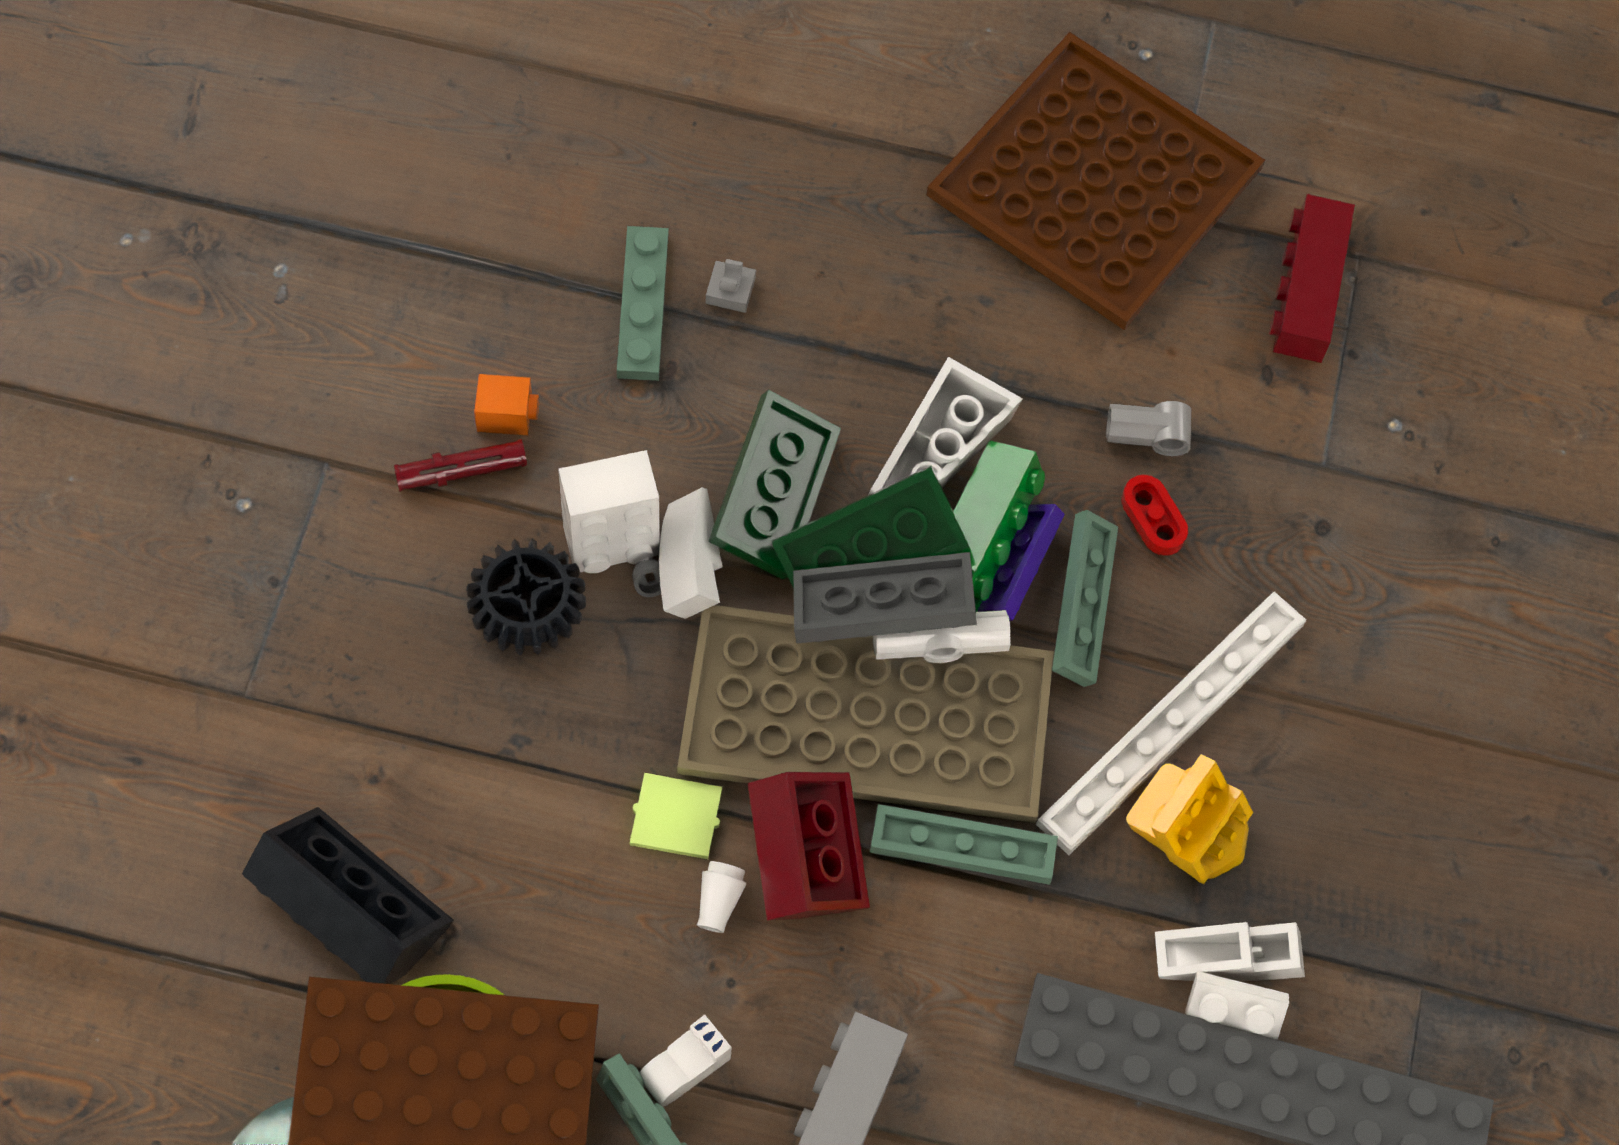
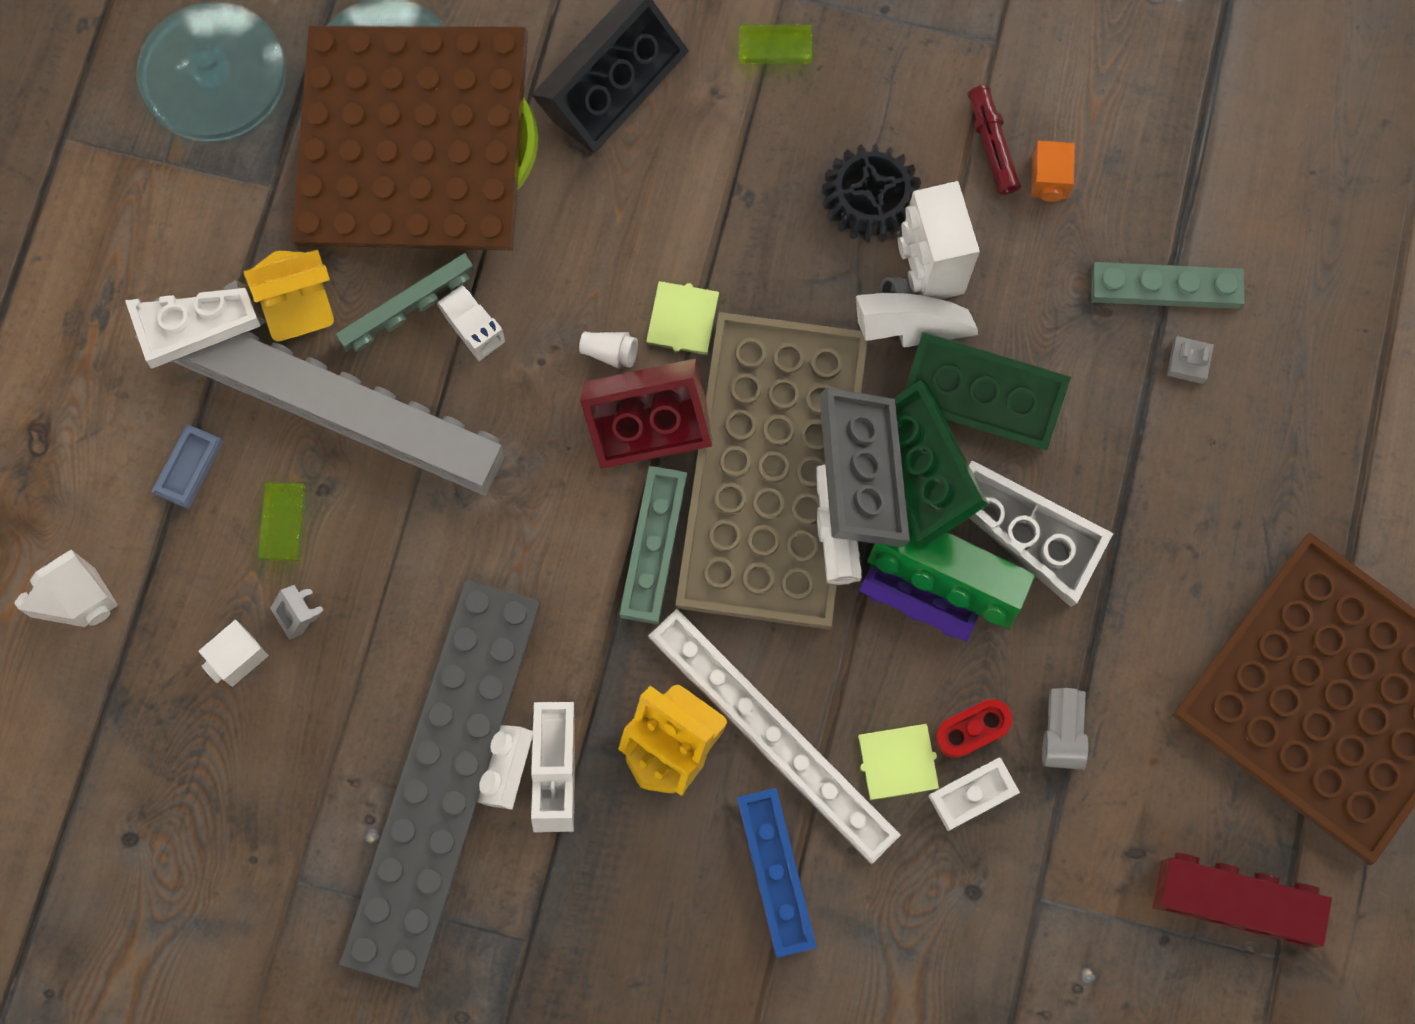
camera: 95 degrees right, 10 degrees up
(315, 705) = (775, 44): none -> clear neon green tile
(1085, 598) = (887, 659): sand green plate -> none
(1192, 594) = (898, 762): none -> yellowish green piece
(1225, 518) = (974, 794): none -> white plate
(1326, 716) = (776, 873): none -> blue plate

